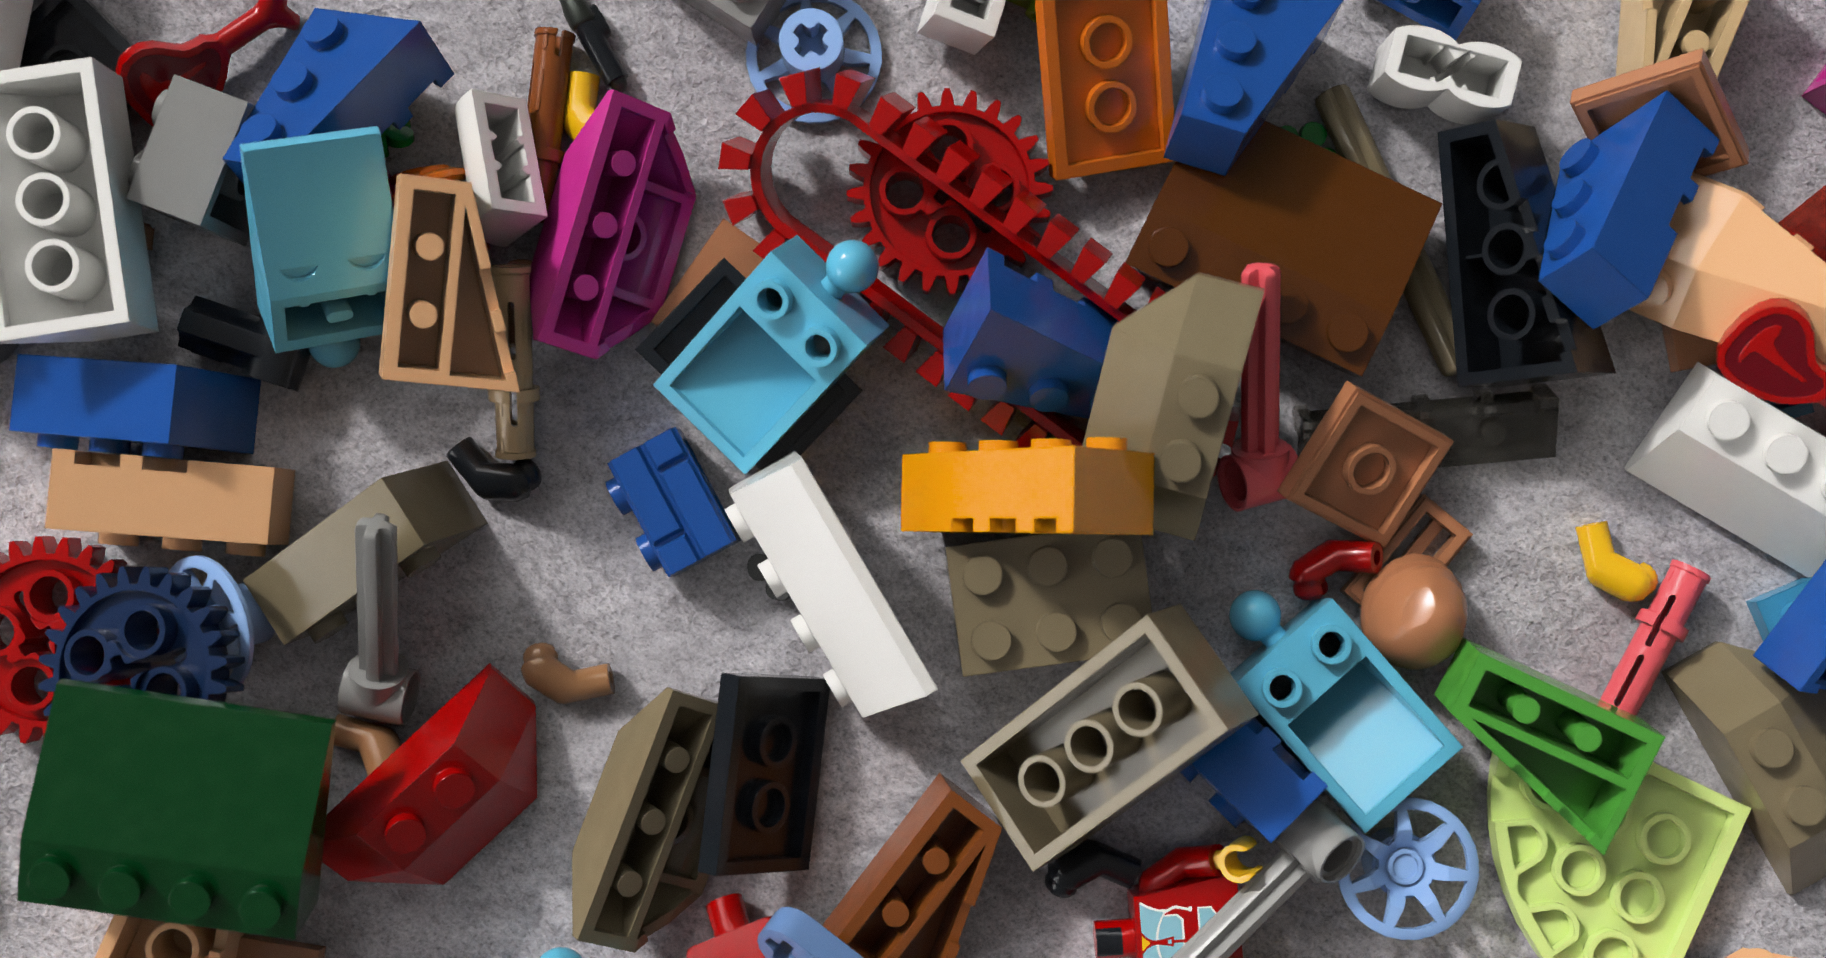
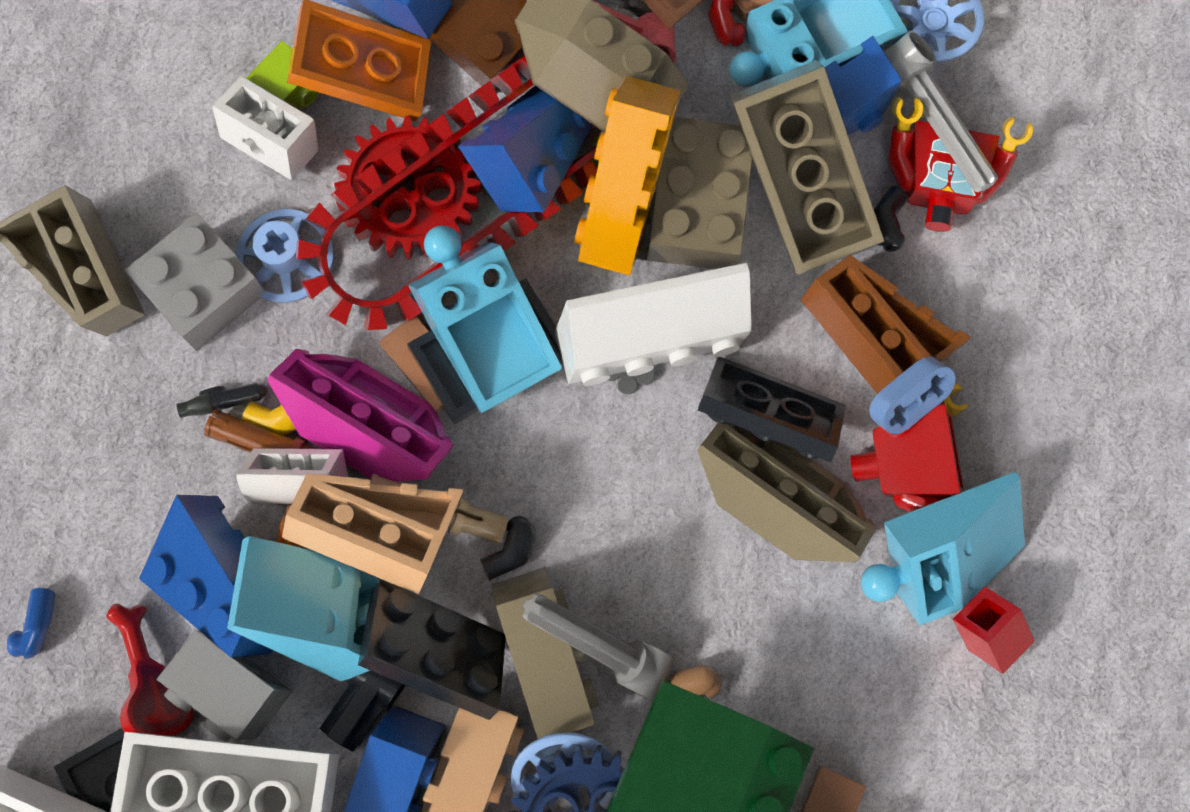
camera: 80 degrees left, 10 degrees down
(314, 411) = (433, 649): none -> black plate
(440, 790) = (727, 639): red wedge -> none
(559, 682) = (672, 540): medium nougat arm -> none
(671, 502) = (568, 427): blue brick -> none

